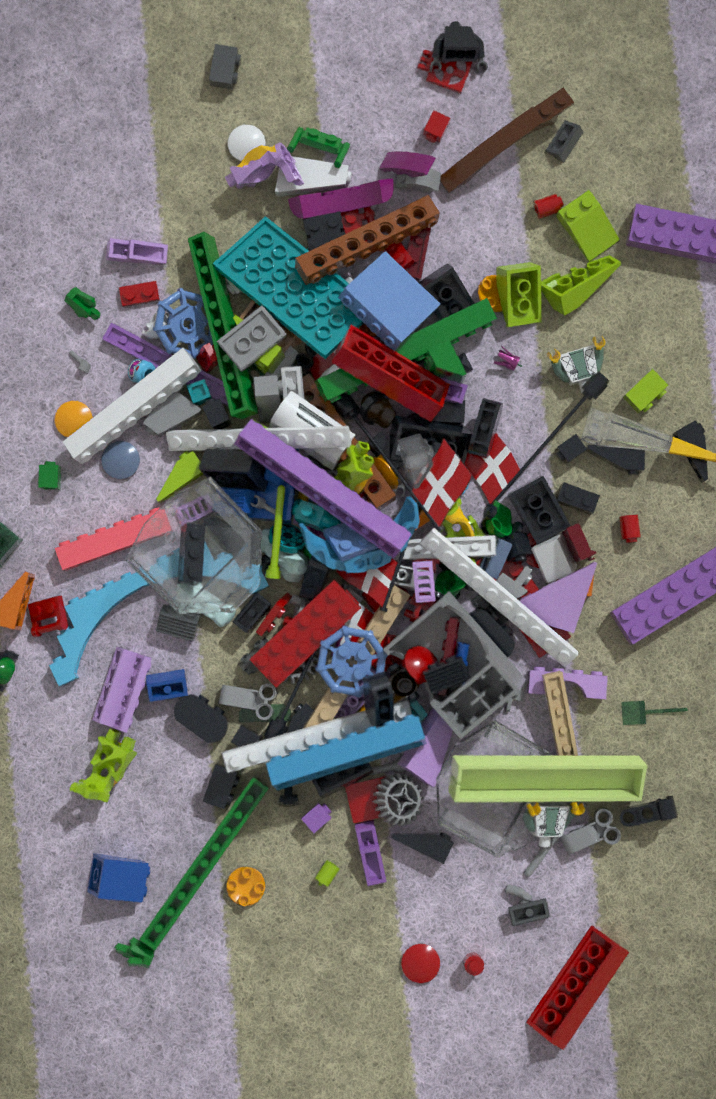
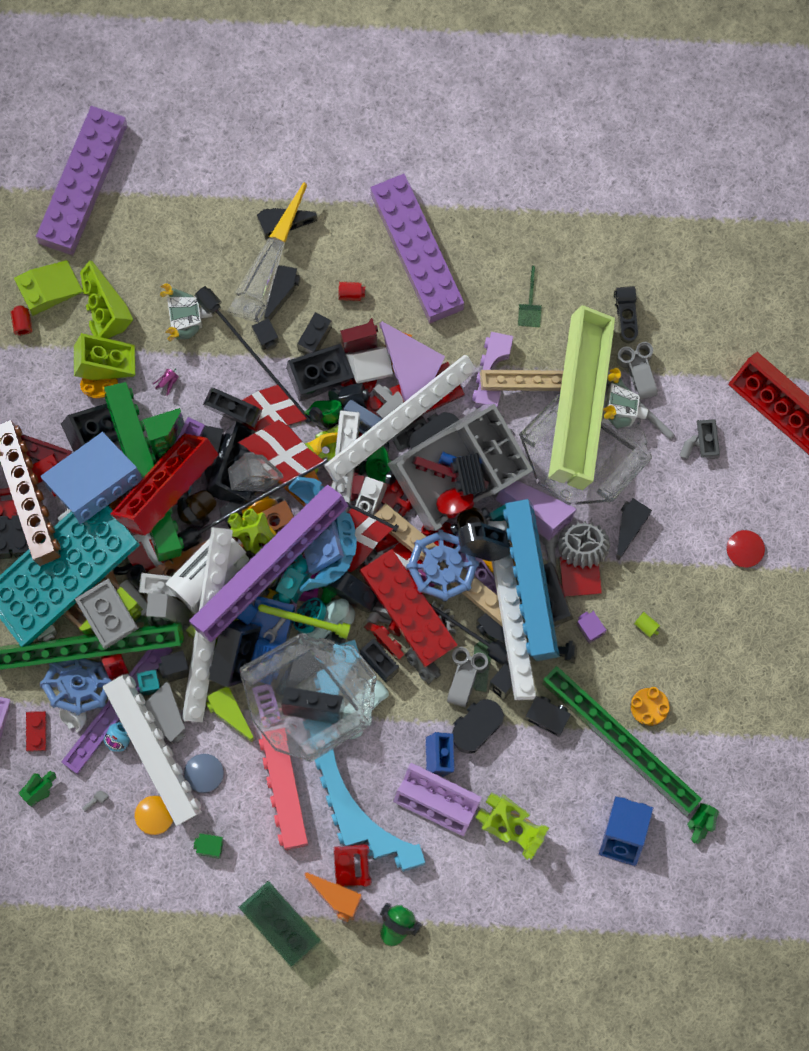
camera: 80 degrees left, 10 degrees down
(177, 625) = (379, 735): dark grey brick -> none
(370, 853) = (632, 580): medium lavender slope -> none
(424, 598) = (374, 490): lavender slope -> none
(473, 963) = (751, 497): red brick -> none
(645, 391) = (220, 256): lime brick -> none

